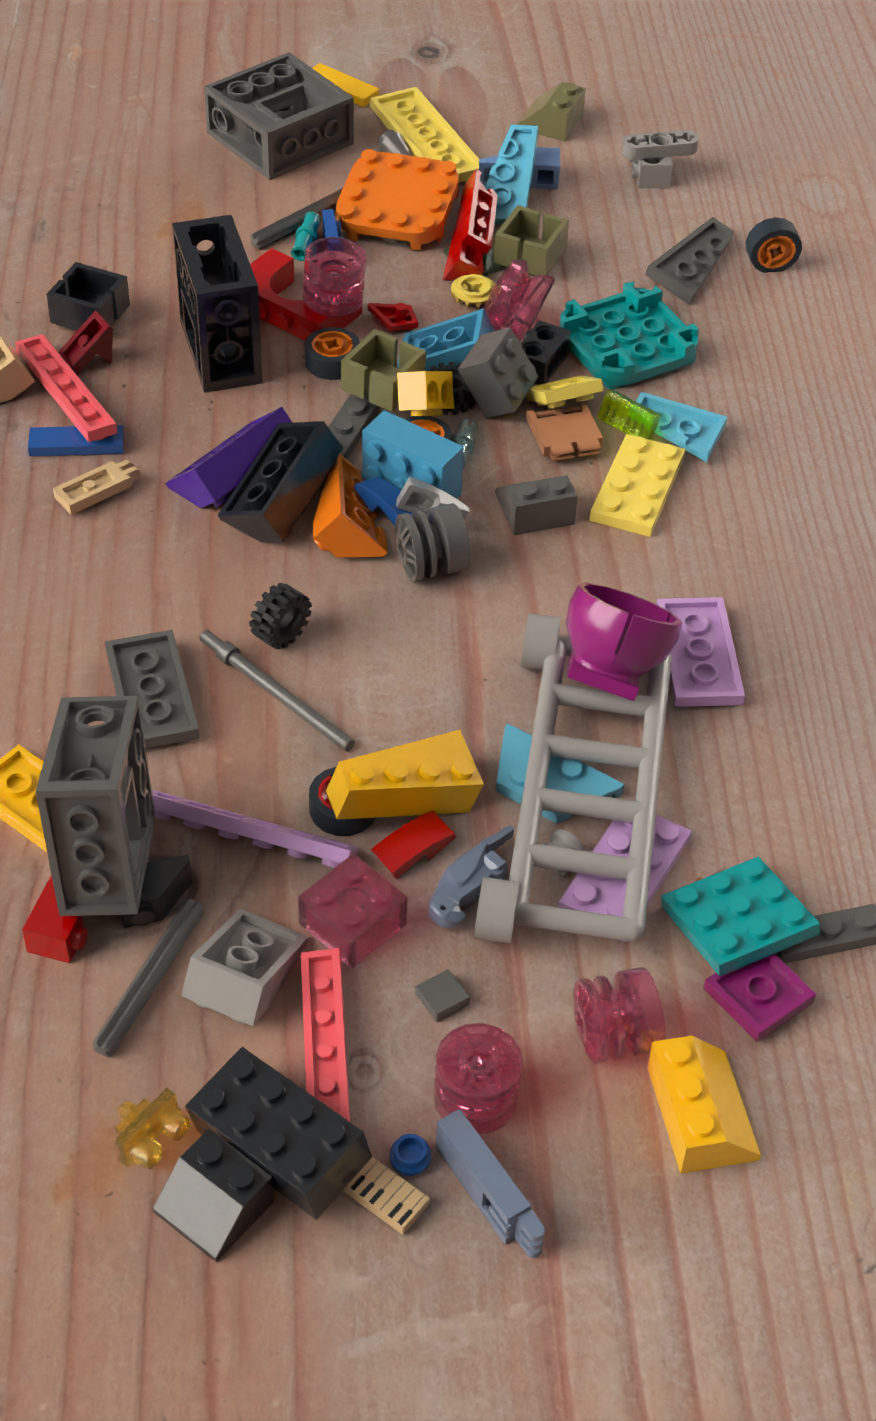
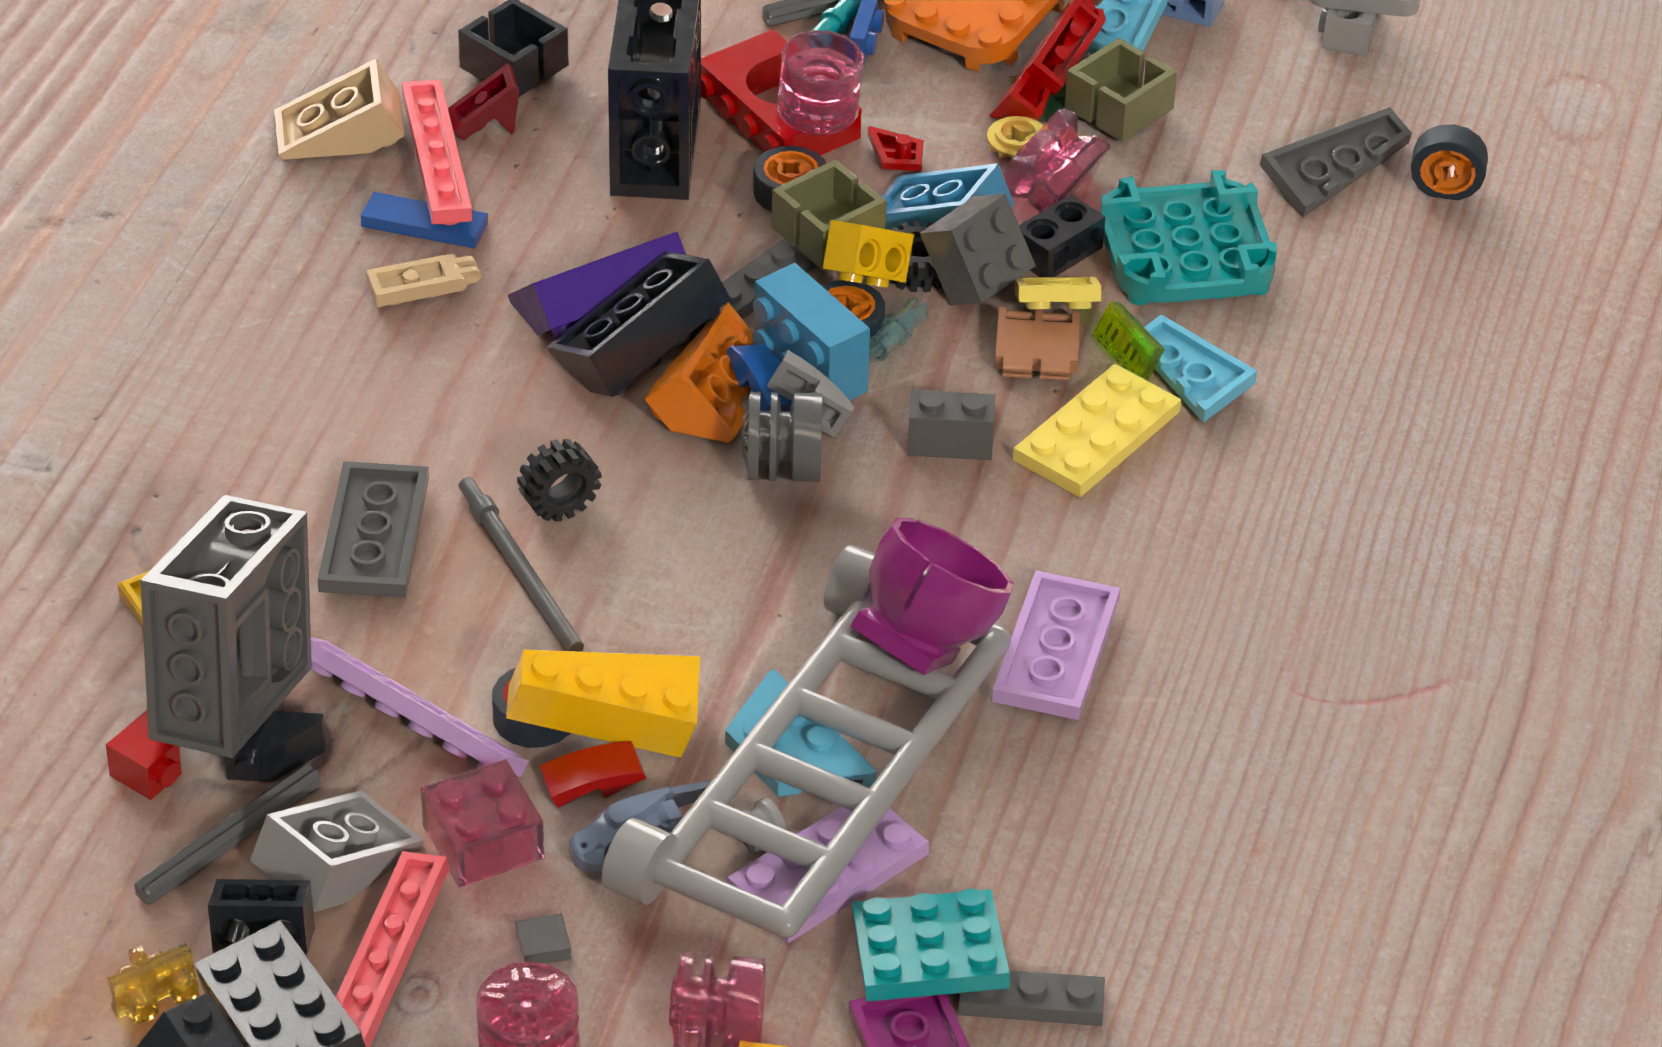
camera: 20 degrees right, 5 degrees down
(212, 1039) = (259, 906): none -> black brick

